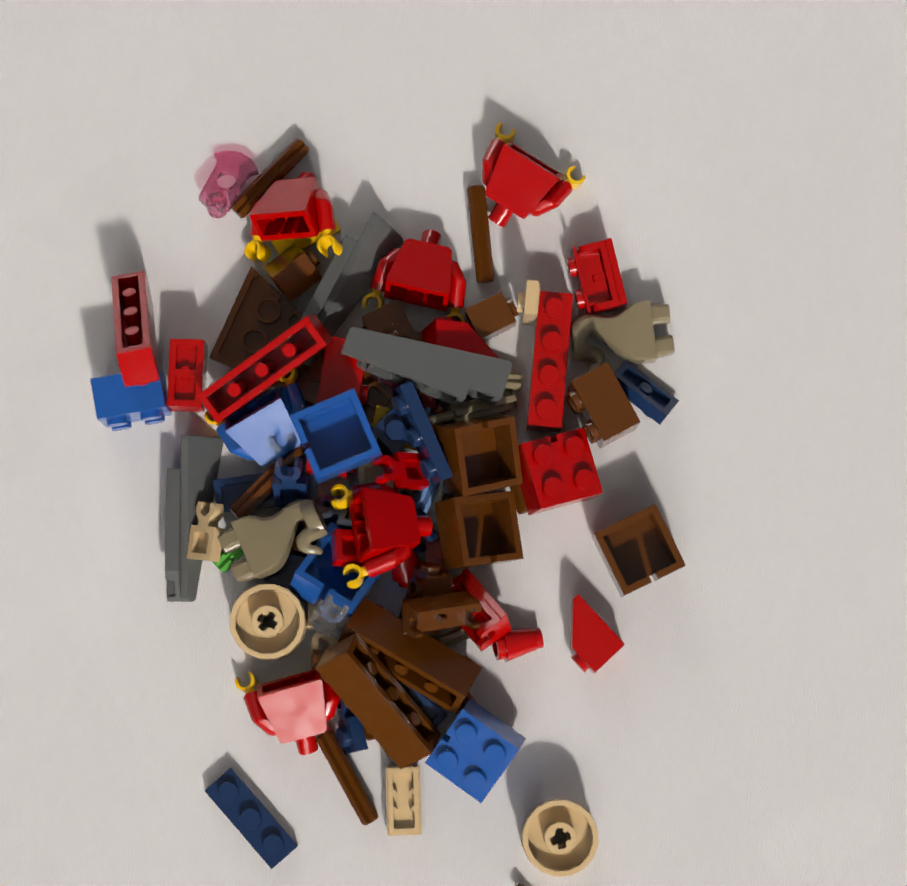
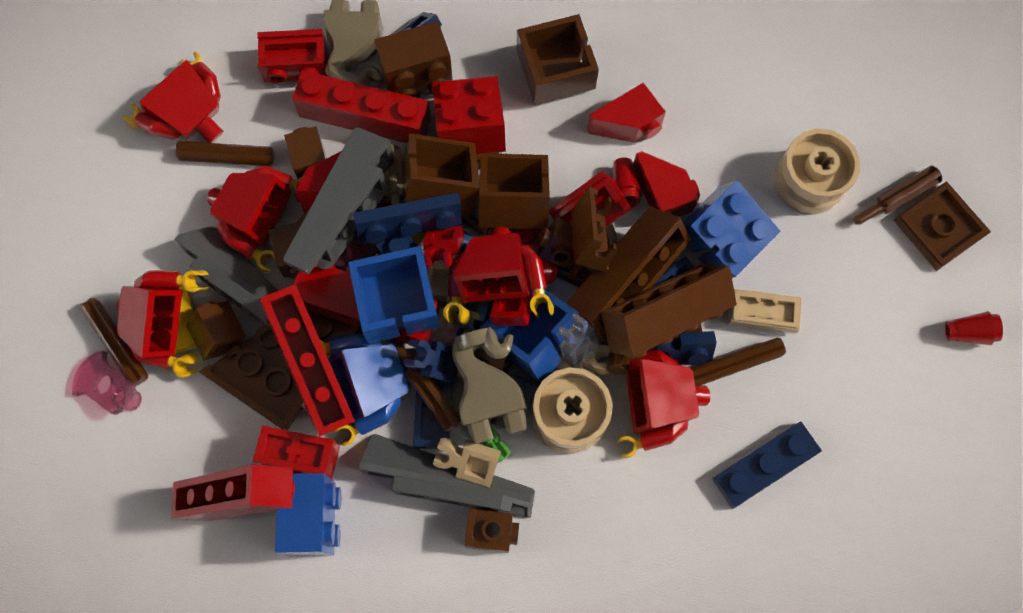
camera: 80 degrees left, 10 degrees down
(150, 552) = (477, 538): none -> reddish brown brick
(516, 685) = (666, 185): none -> red slope
(528, 302) = (300, 108): tan plate -> none

